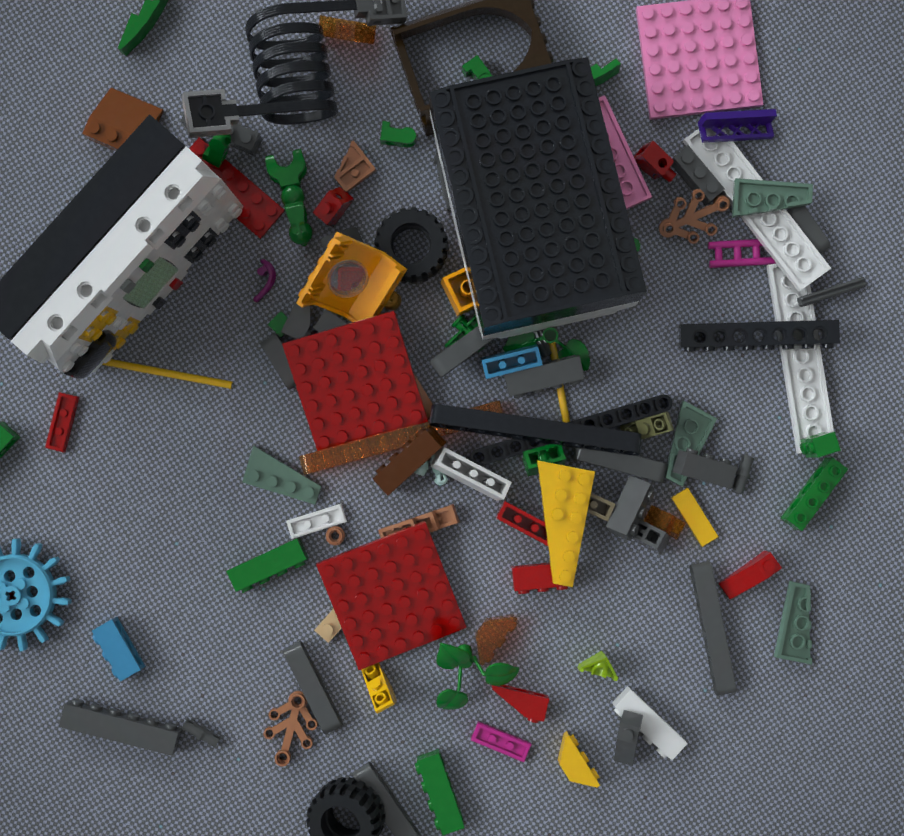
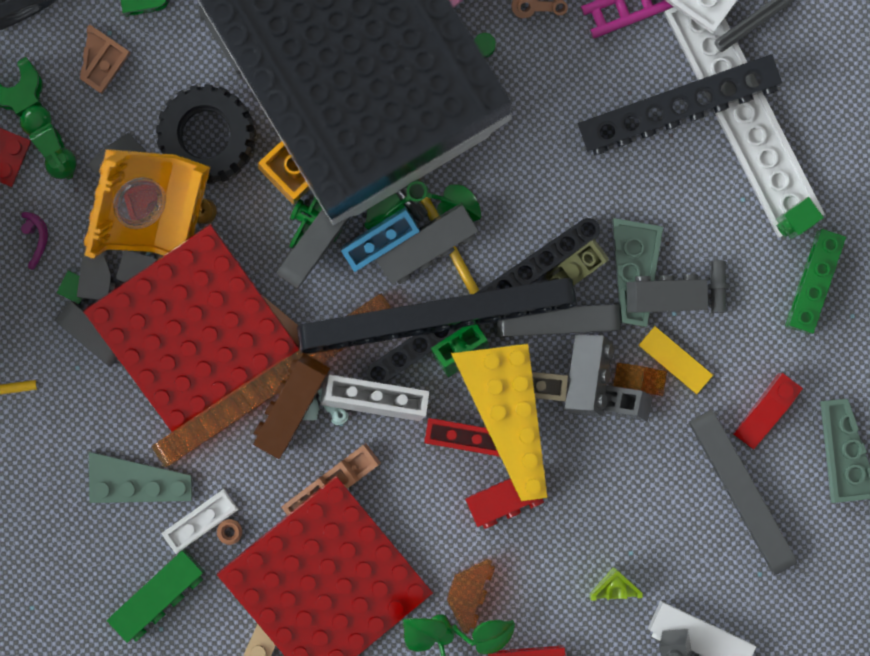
camera: 15 degrees left, 0 degrees up
(331, 207) = (91, 119): red torso -> none

